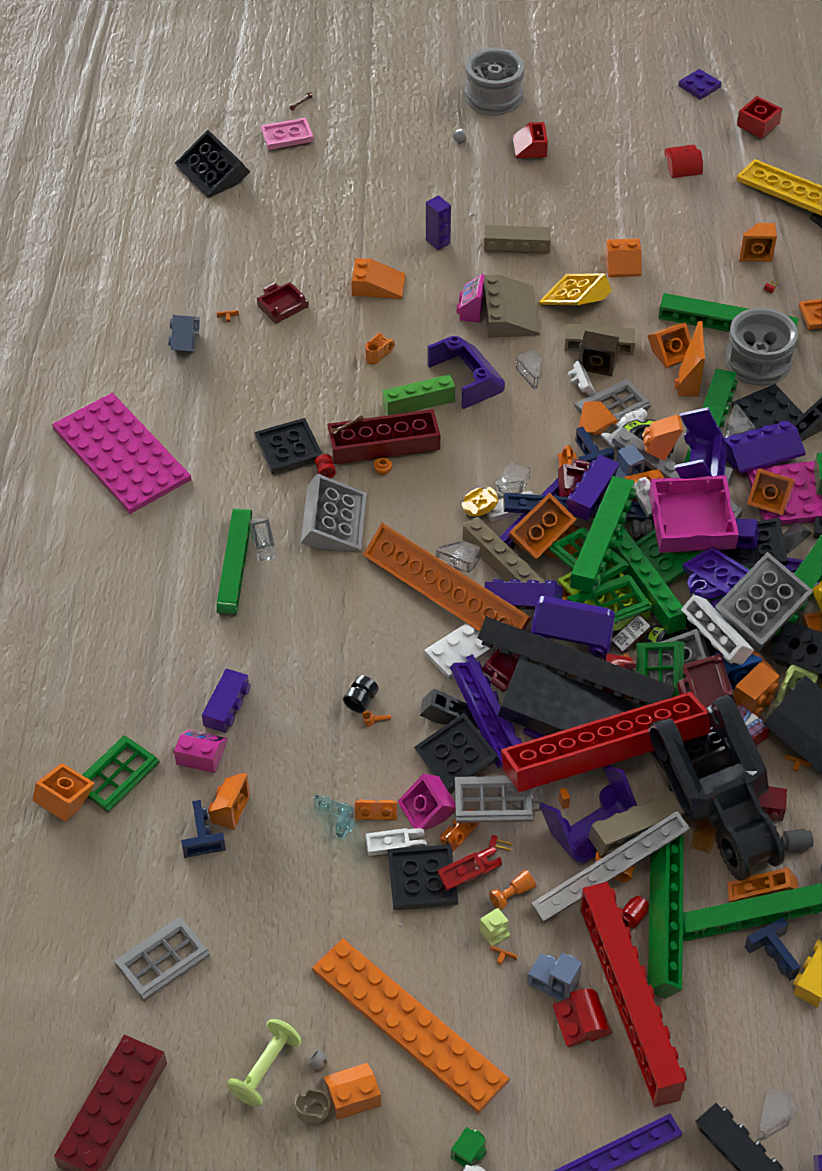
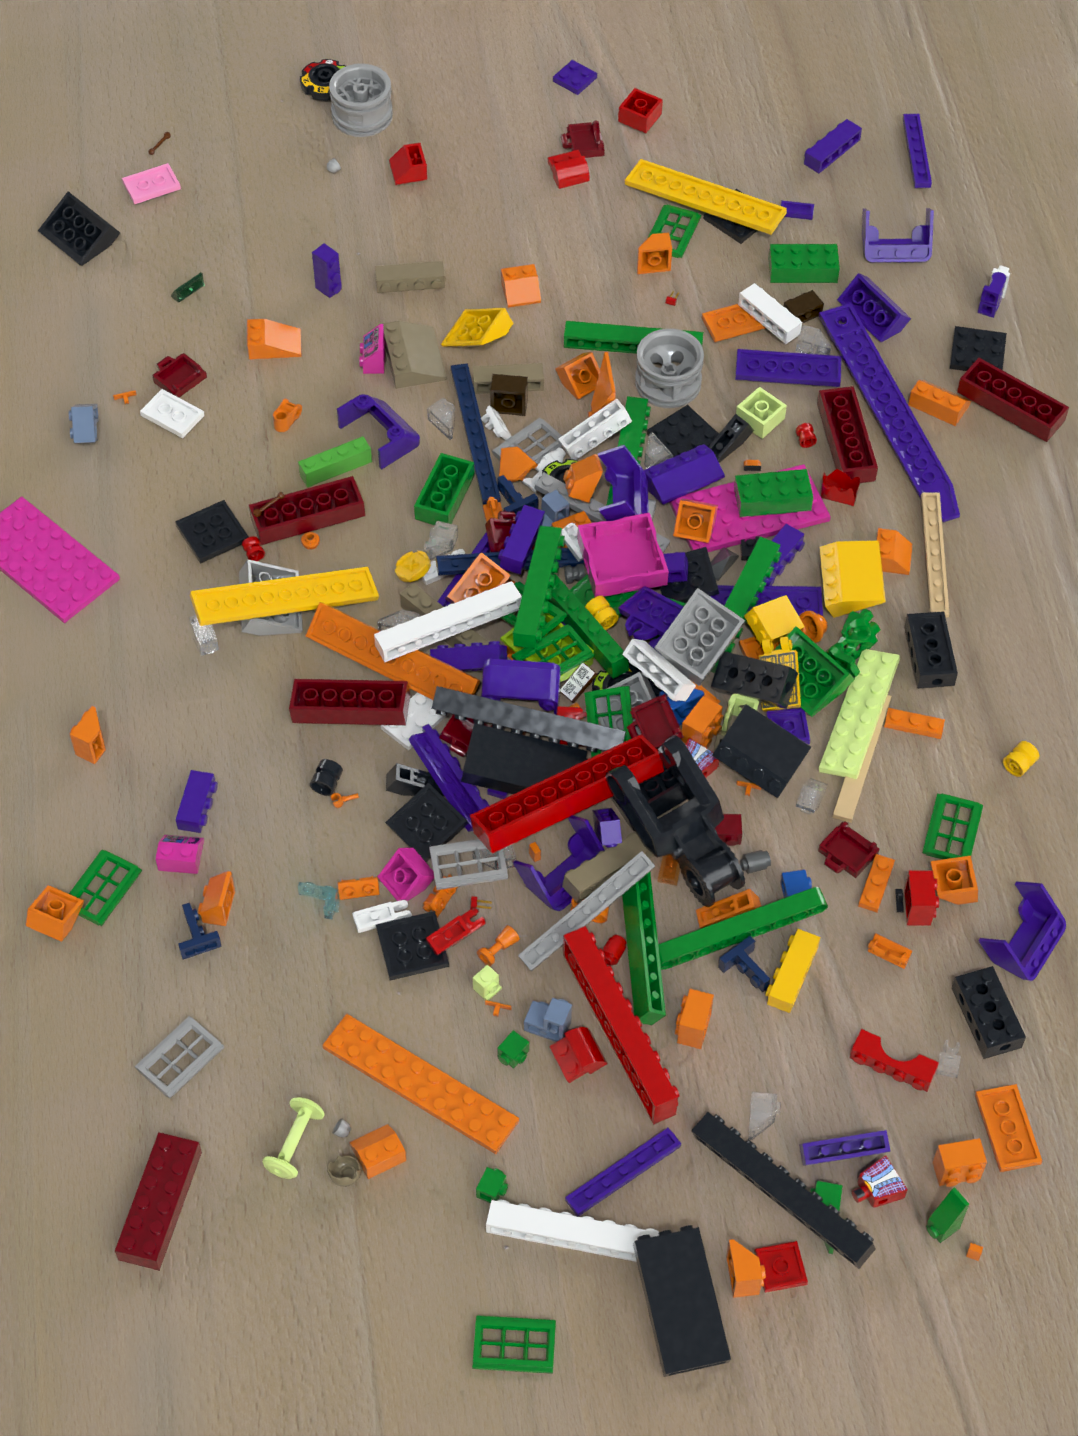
camera: 10 degrees left, 5 degrees up
(130, 623) = (88, 737): none -> orange slope
(234, 562) = (179, 659): green beam -> none
(269, 334) = (172, 413): none -> white plate
(305, 226) = (188, 288): none -> clear green slope
(346, 512) = (283, 595): none -> yellow plate
(396, 622) = (349, 702): none -> dark red brick
(455, 60) = (317, 77): none -> black piece
(506, 555) = (447, 621): none -> white brick
(513, 1003) = (513, 1050): none -> green brick
(522, 433) = (444, 490): none -> green brick
(560, 385) = (475, 432): none -> dark blue plate
(643, 782) = (607, 827): none -> dark purple brick
(665, 567) = (602, 612): none -> yellow wheel
(680, 394) = (595, 429): none -> white brick
(702, 135) = (585, 138): none -> dark red piece
(712, 997) = (694, 1018): none -> orange brick
(794, 226) = (689, 229): none -> green piece

